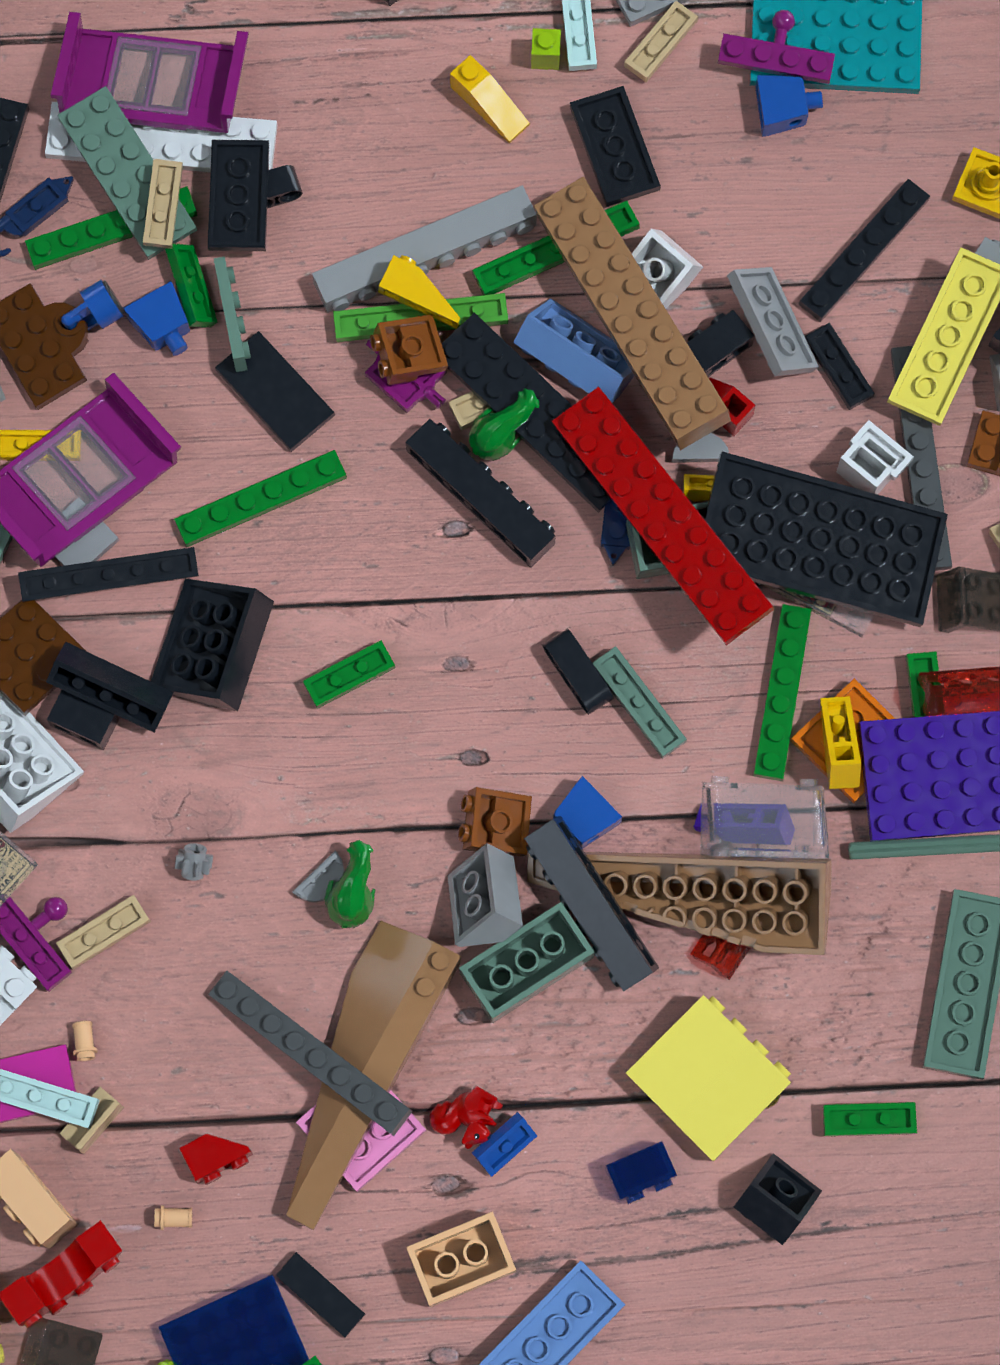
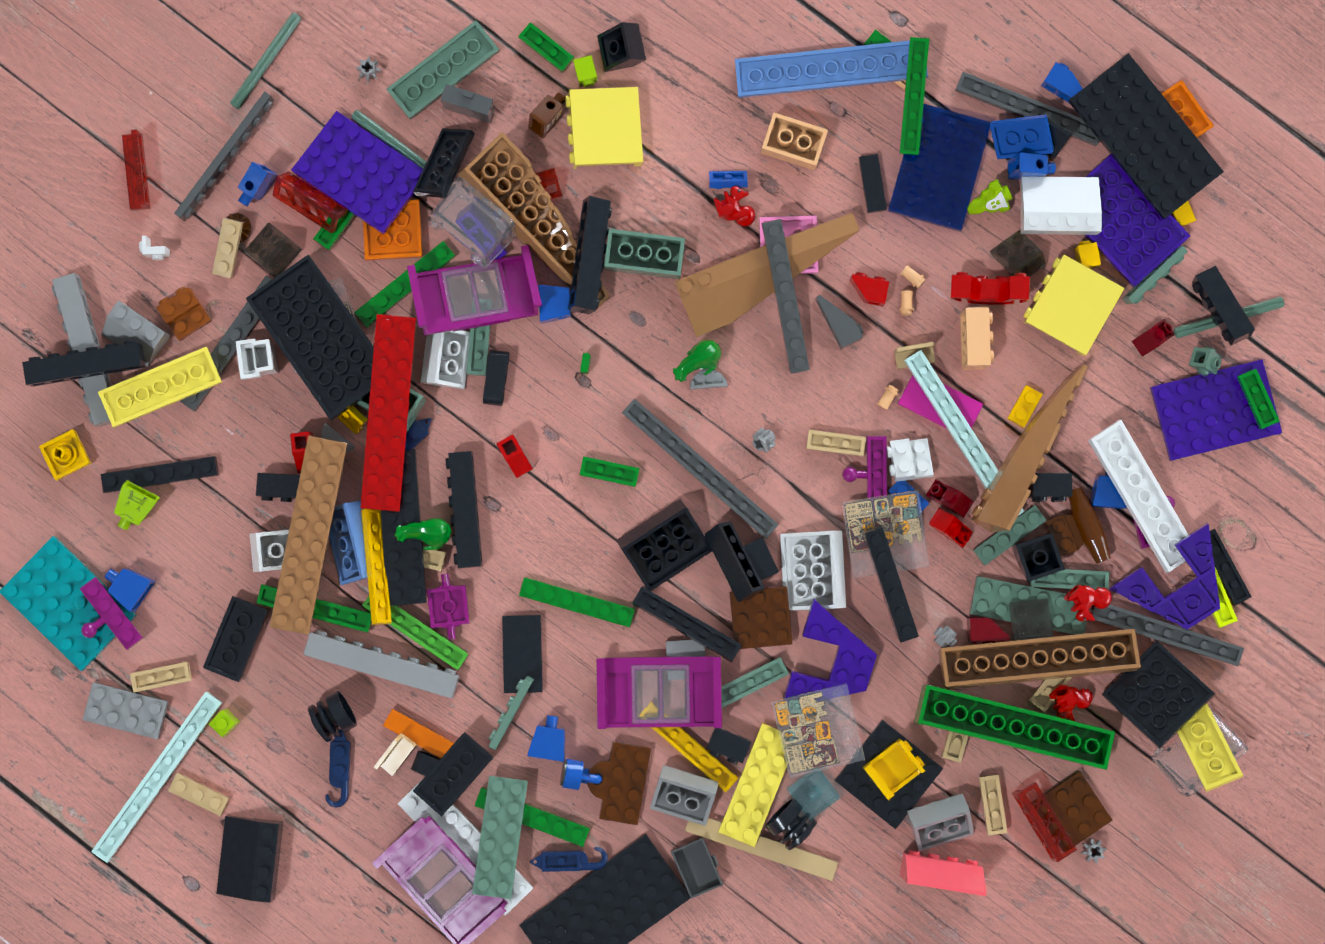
camera: 140 degrees left, 10 degrees up
(154, 1177) = (906, 303): none -> light nougat pin
(162, 203) = (497, 800): tan plate -> none
(191, 286) = (517, 747): green plate -> none
(212, 1080) = (841, 325): none -> dark grey slope
(243, 766) = (700, 468): none -> dark grey plate
(318, 212) = (417, 733): none -> orange tile
(323, 169) = (396, 754): none -> panel
(376, 107) = (339, 768): none -> dark blue plate
(408, 349) = (437, 613): dark orange plate -> none
(412, 287) = (407, 644): yellow slope -> none
(430, 147) = (329, 718): none -> black wheel
(477, 598) = (514, 456): none -> red slope
(485, 898) = (639, 299): light grey slope -> none
(486, 774) = (585, 364): none -> green tile
(487, 98) = (278, 720): yellow slope -> none
(495, 819) = (600, 336): dark orange plate -> none
(522, 339) = (375, 567): none -> yellow tile
(641, 1172) = (675, 112): clear blue brick -> none
(657, 644) = (446, 359): none -> white slope
(685, 735) = (475, 295): none -> magenta piece
(772, 321) = (241, 473): light grey plate -> none
(791, 1021) = (546, 114): none -> reddish brown torso
(795, 1129) = (585, 71): none -> lime brick
(839, 366) = (228, 424): black tile -> none
(840, 743) = (400, 231): yellow slope -> none
(860, 192) = (133, 504): none -> lime torso
(862, 865) = (443, 163): none -> black tile
(898, 961) = (468, 103): none -> dark grey container

